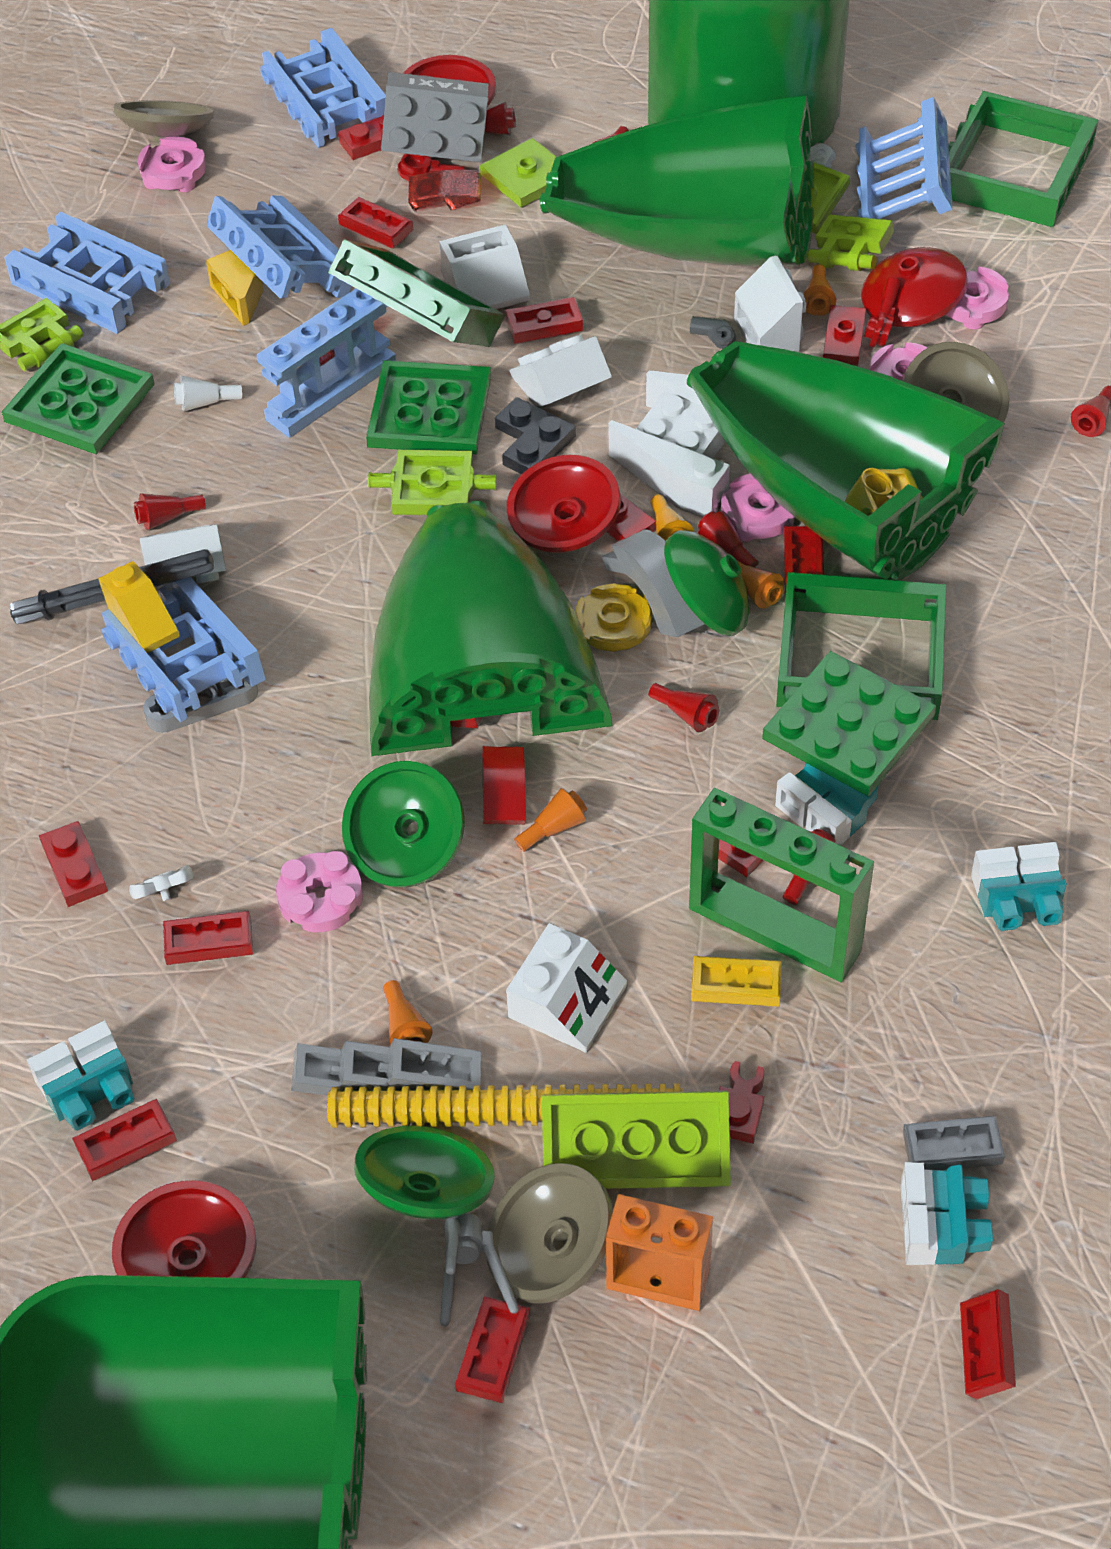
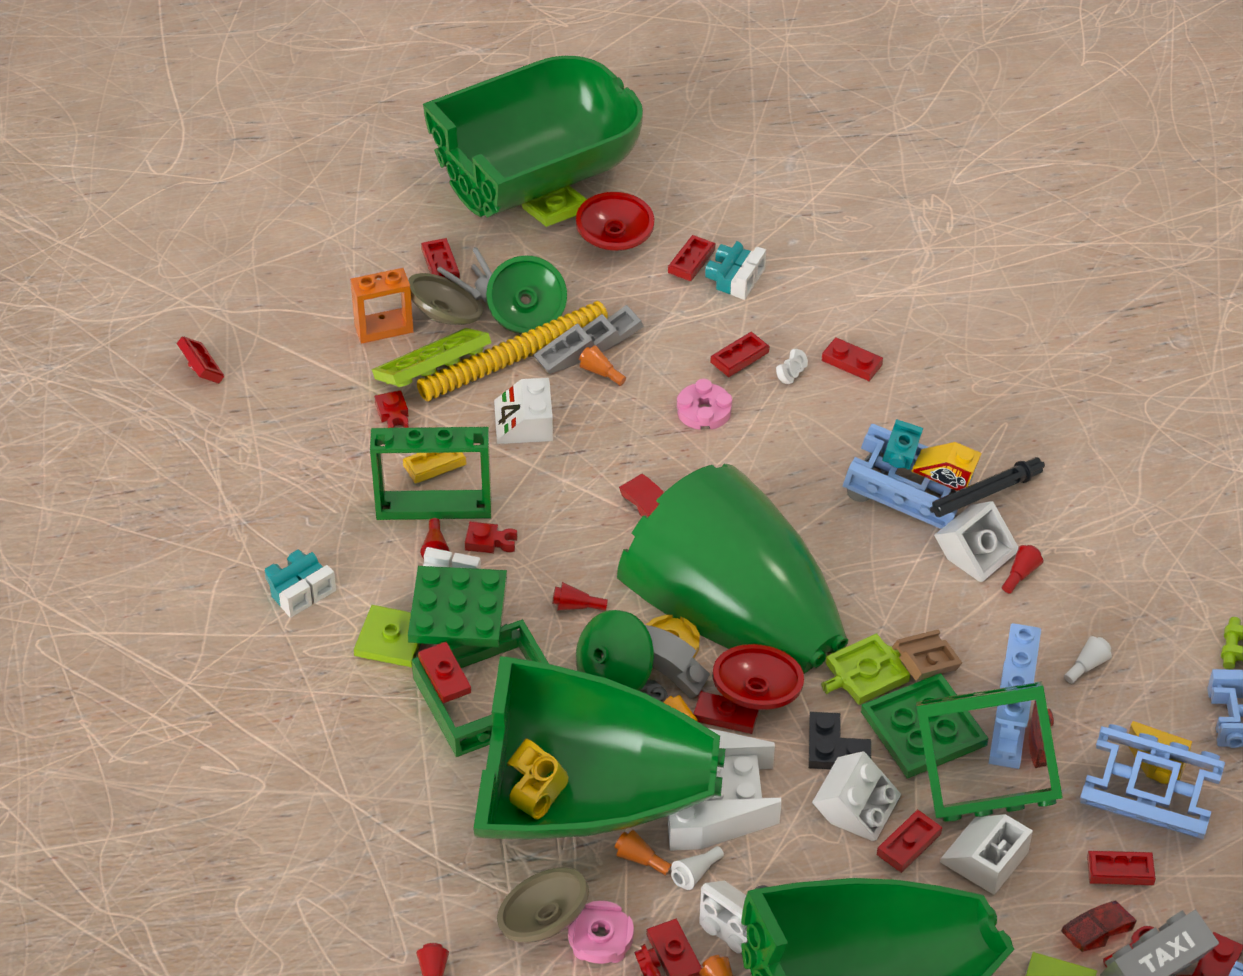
camera: 145 degrees right, 5 degrees down
(78, 398) = (1166, 613): green plate -> none
(170, 641) = (902, 444): none -> teal brick
(364, 454) = (927, 655): none -> medium nougat plate
(379, 818) = (681, 441): green dish -> none
(560, 814) = (600, 501): orange cone -> none
(915, 653) = (444, 672): none -> red plate
(936, 1215) = (256, 402): hips -> none
(939, 773) = (386, 637): none -> lime plate
(954, 1142) = (265, 437): flat silver plate -> none

